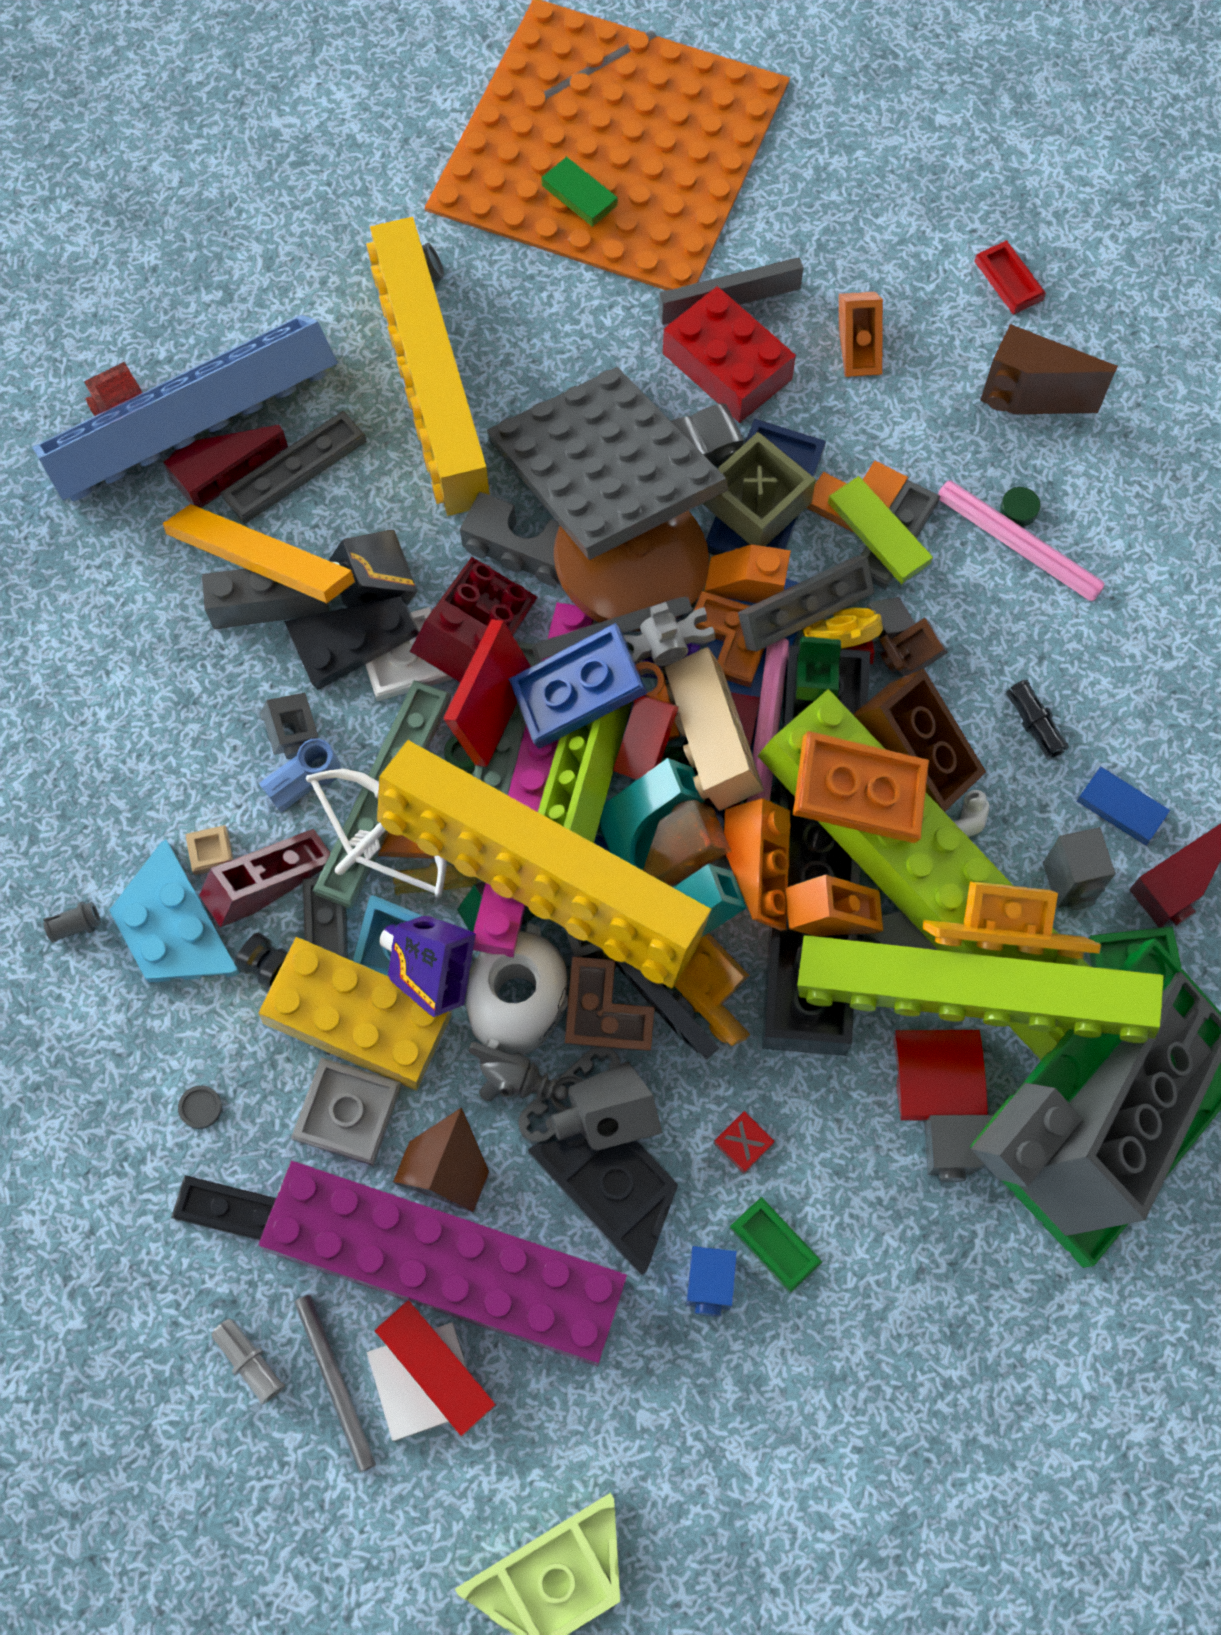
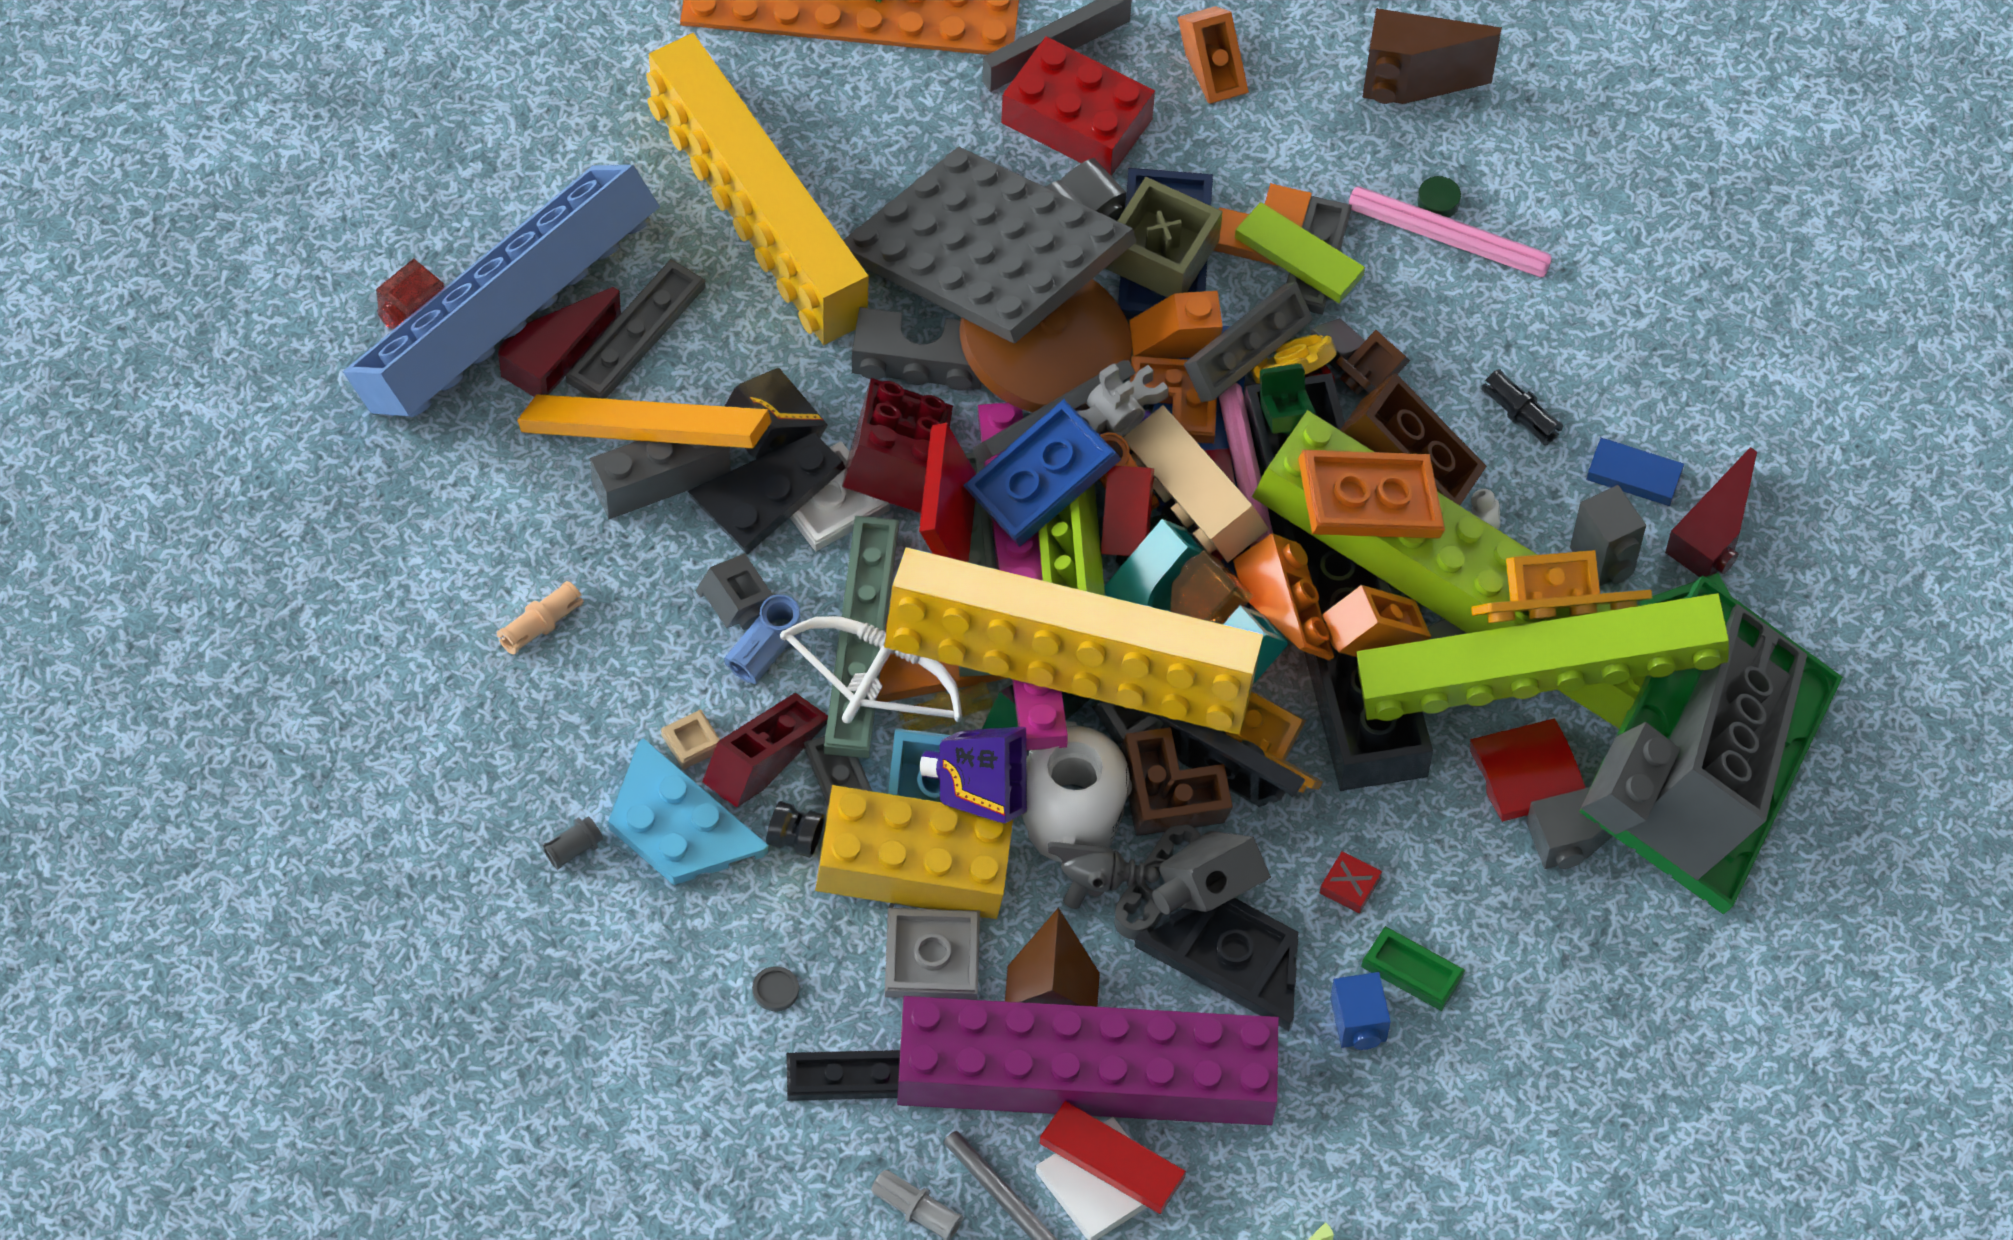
camera: 20 degrees left, 10 degrees down
(120, 705) = (540, 617): none -> light nougat pin

